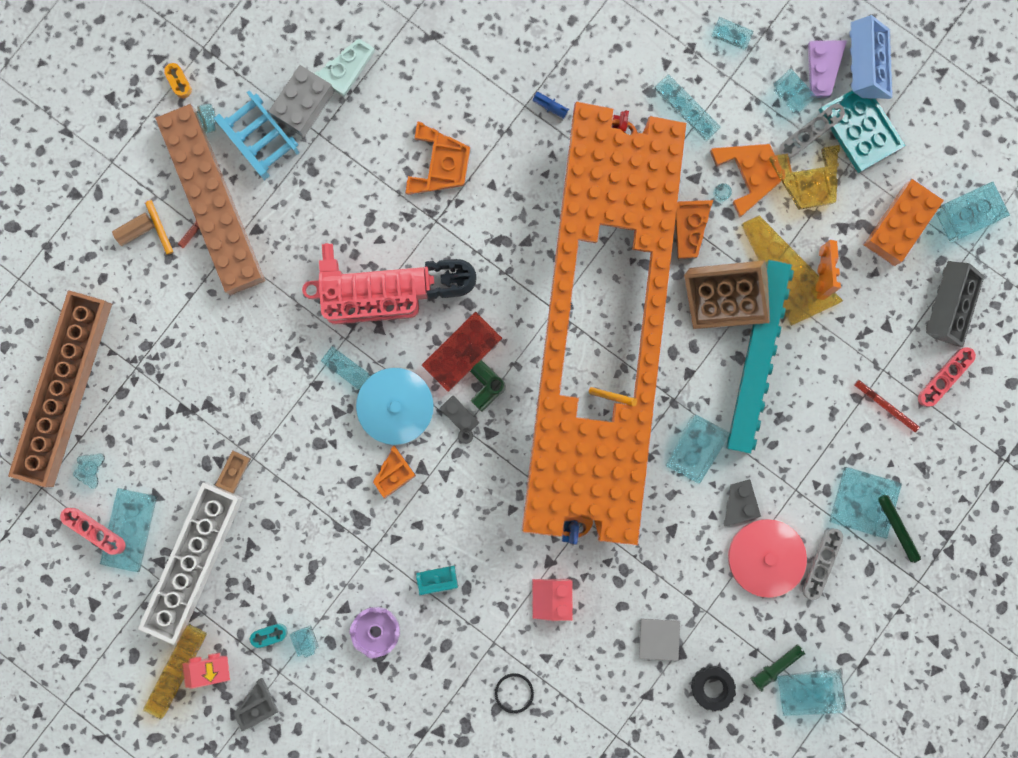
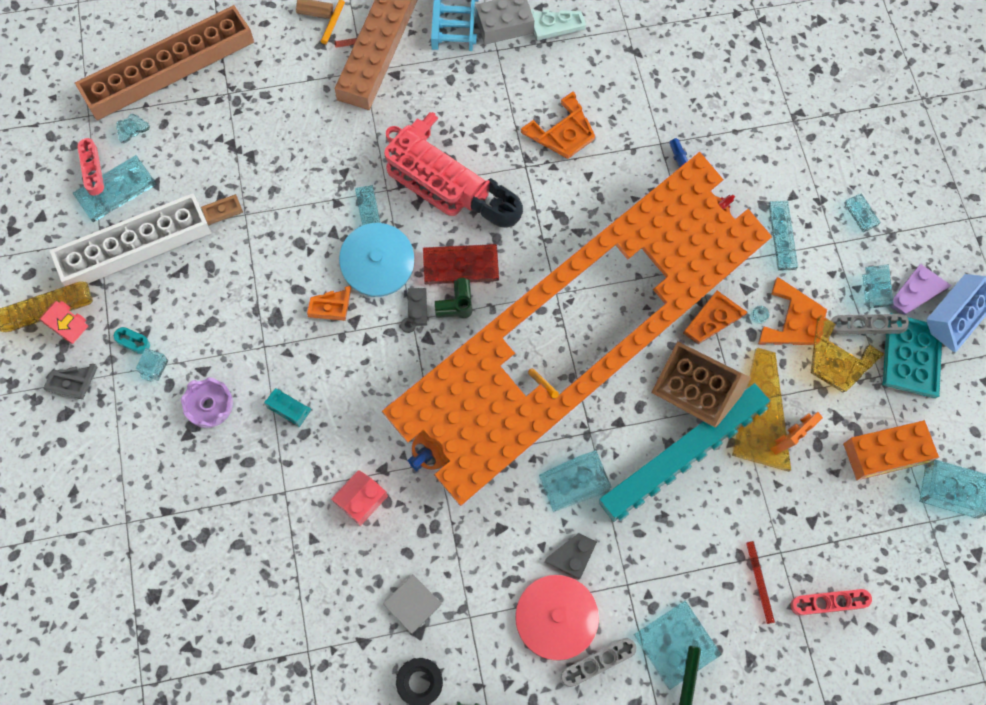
camera: 40 degrees right, 15 degrees down
(496, 693) = (251, 530): black piece -> none
(955, 303) = (886, 549): dark grey slope -> none

